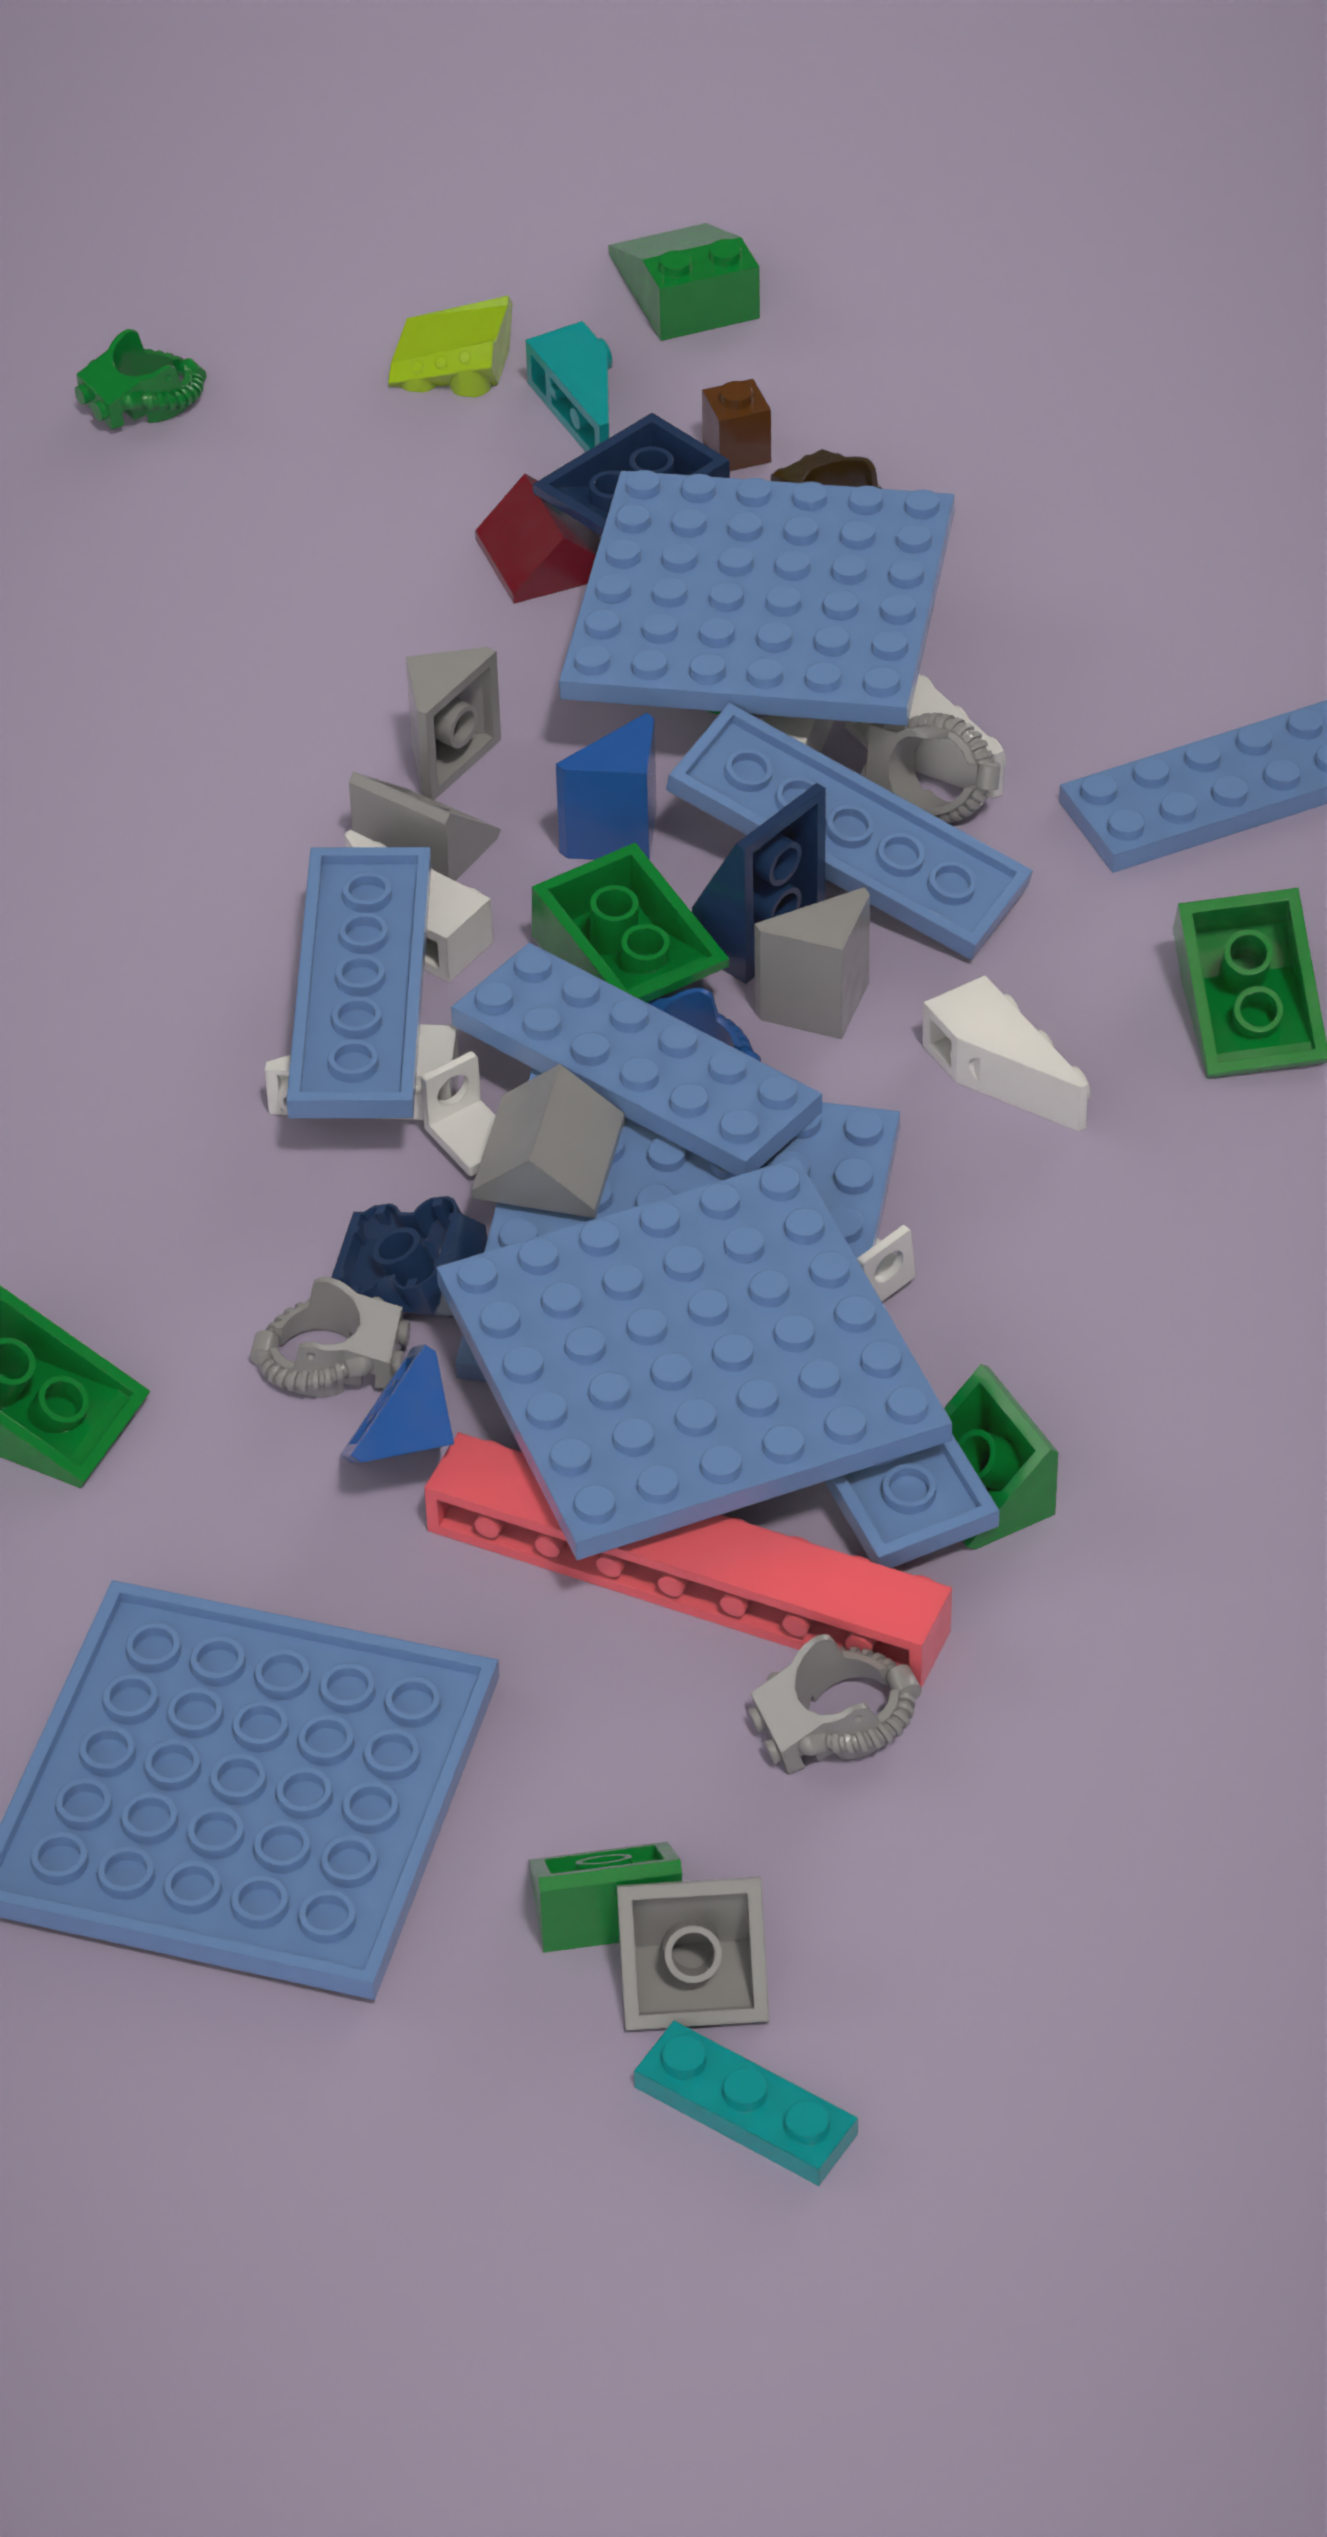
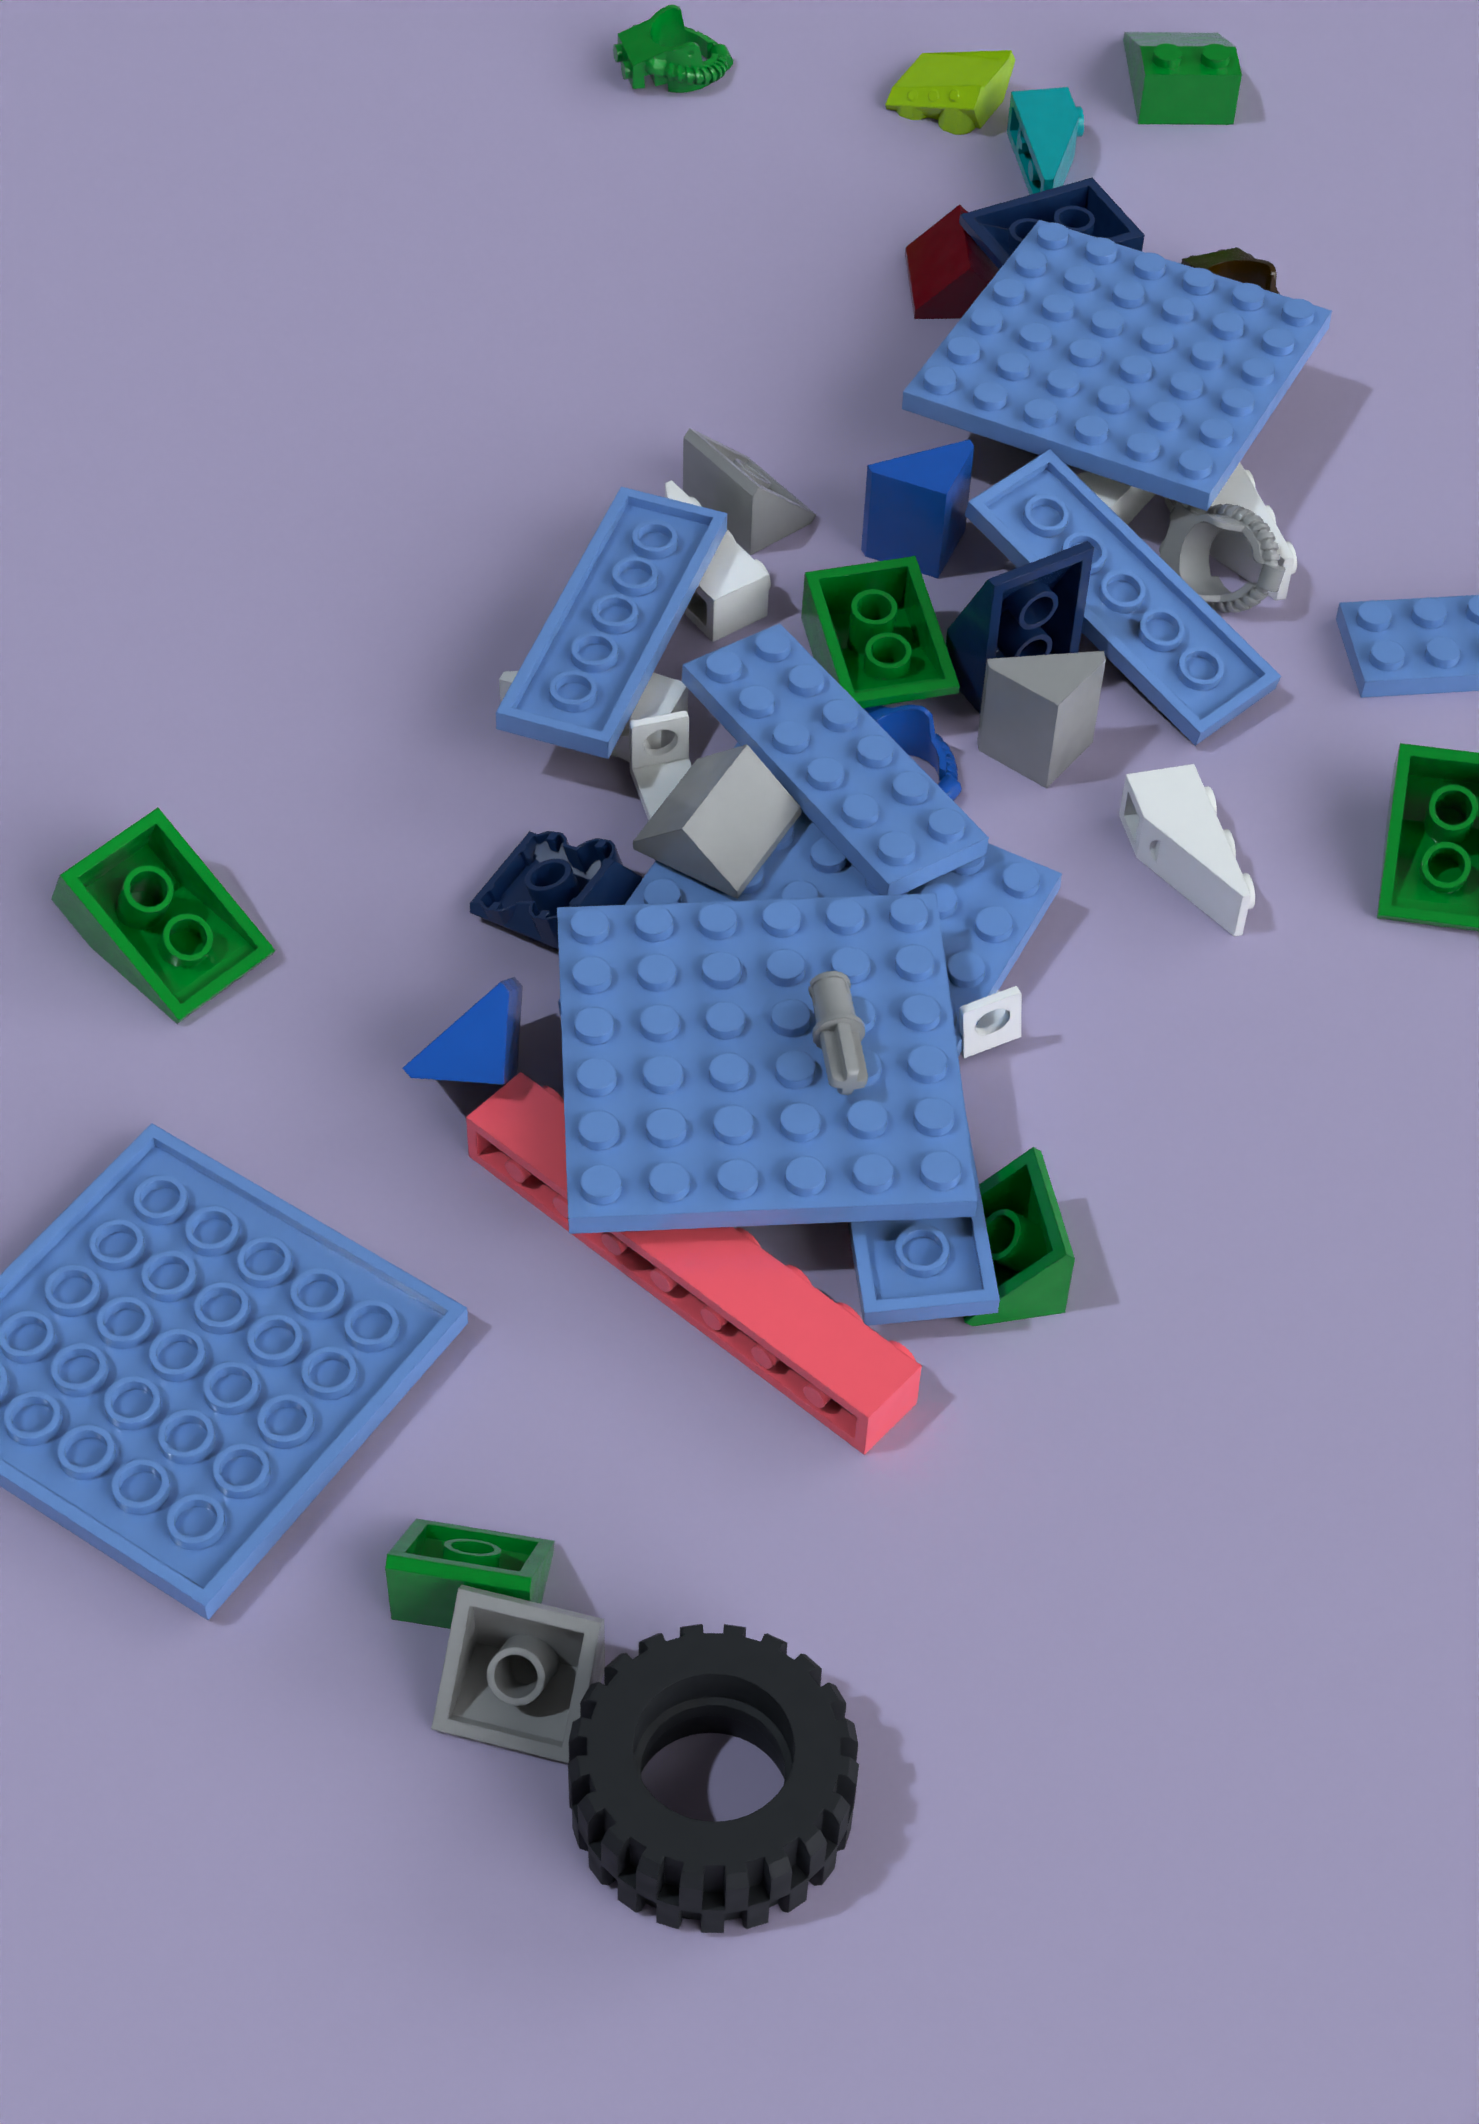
camera: 15 degrees right, 5 degrees up
(320, 1370) = (496, 954): light grey piece -> none
(452, 713) = (806, 400): light grey slope -> none
(737, 423) = (1170, 209): reddish brown brick -> none
(746, 2103) = (514, 1848): teal plate -> none
(765, 1304) = (838, 1031): none -> light grey axle
(852, 1733) = (724, 1429): light grey piece -> none
(899, 2058) = (708, 1866): none -> black tyre

